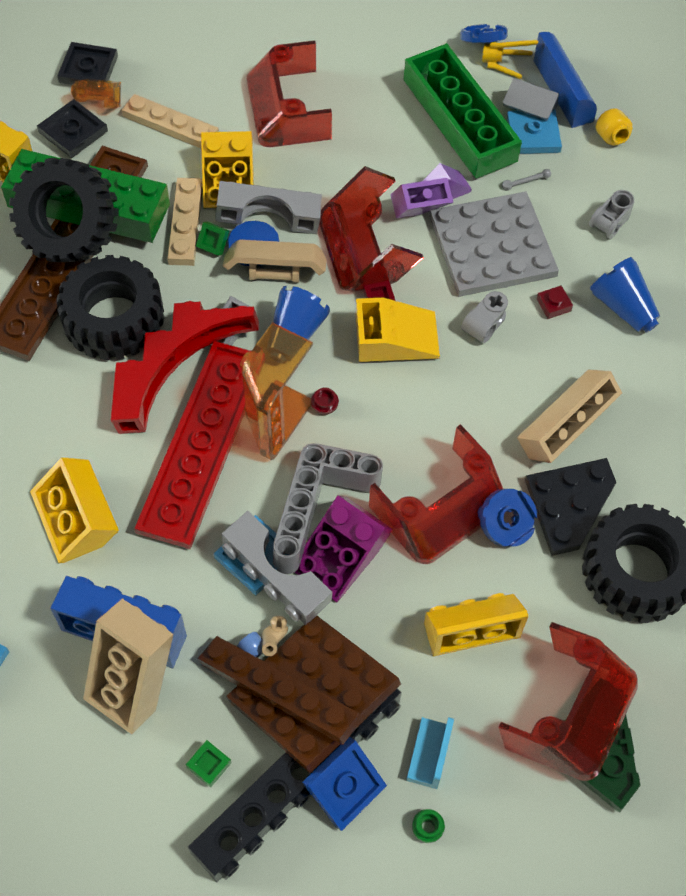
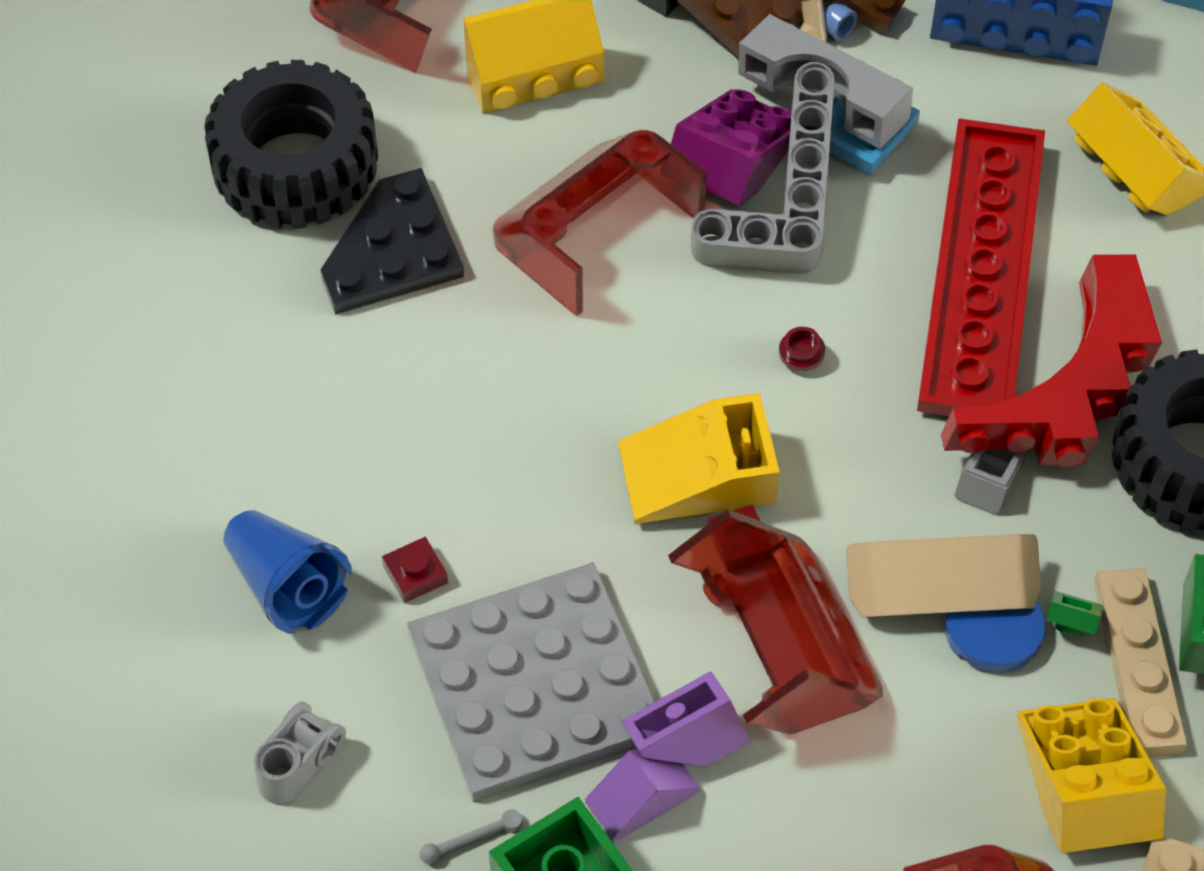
camera: 175 degrees right, 5 degrees down
(270, 405) = (893, 245): clear orange windscreen -> none
(297, 208) = (1047, 672): light grey arch -> none
(299, 311) = (878, 457): blue cone -> none
(486, 316) = (540, 513): light grey piece -> none
(492, 517) = (487, 193): blue plate -> none
(569, 415) = (393, 345): tan brick -> none

